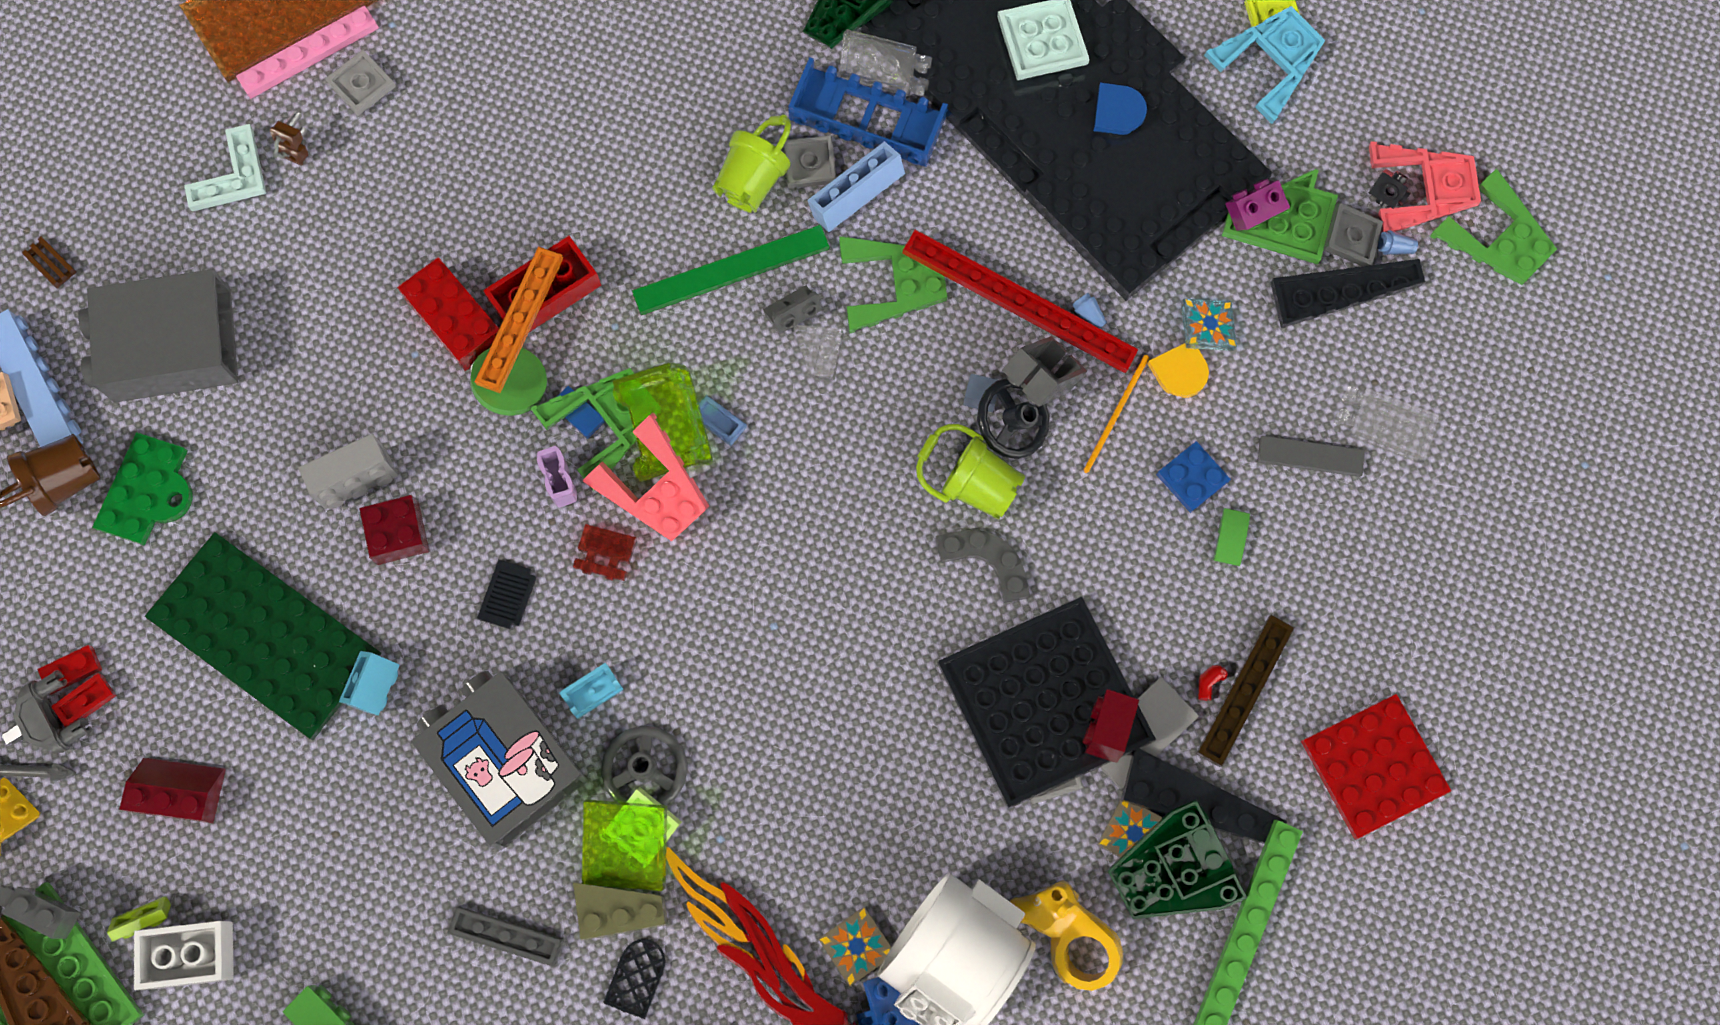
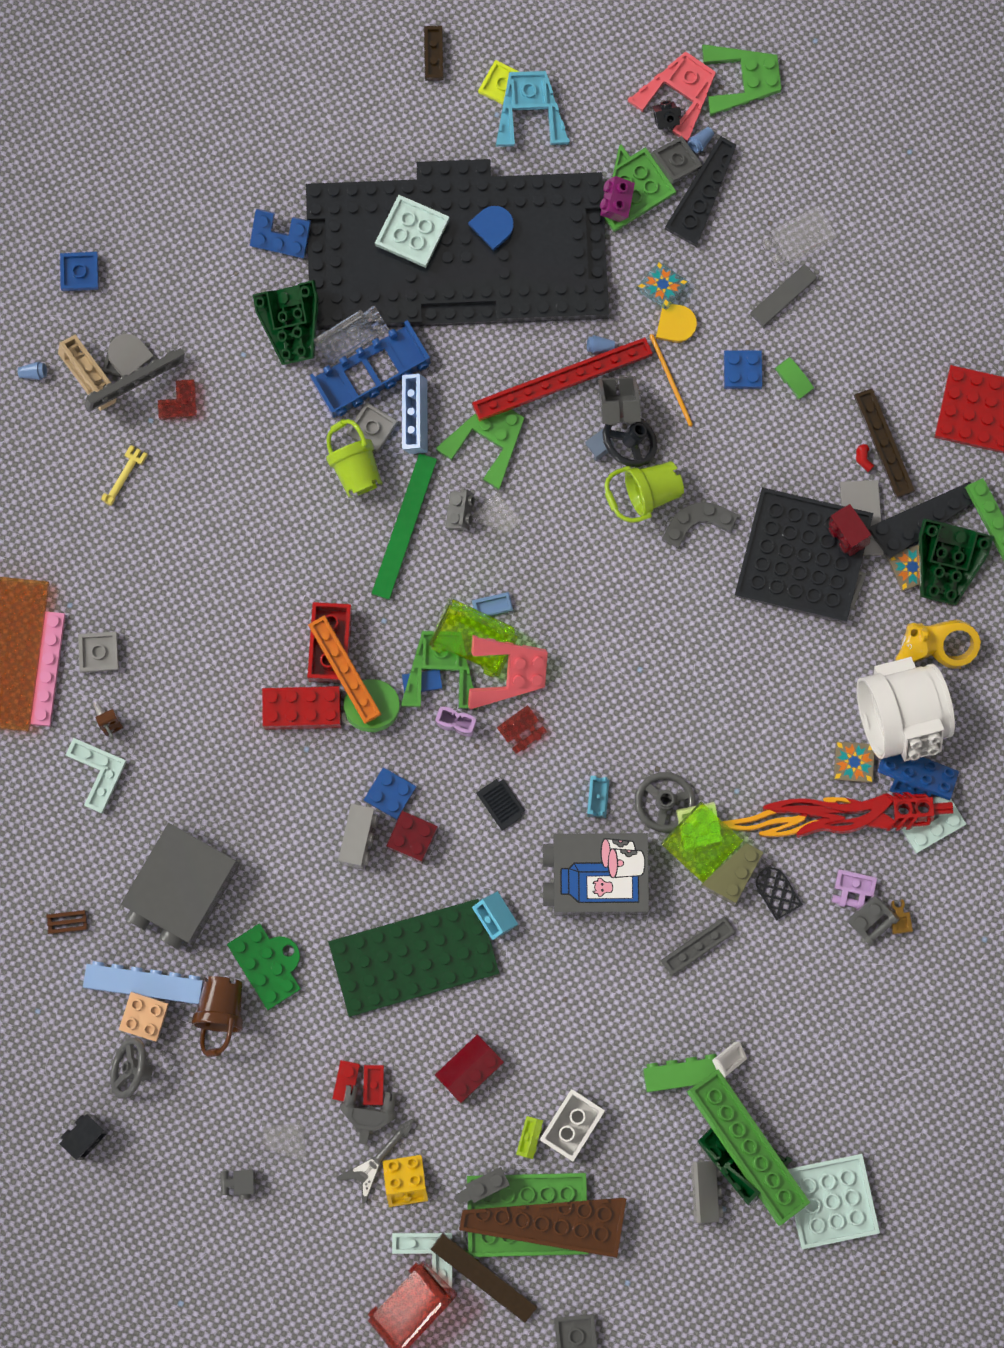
camera: 45 degrees left, 5 degrees up
(429, 472) = (389, 793): none -> blue plate

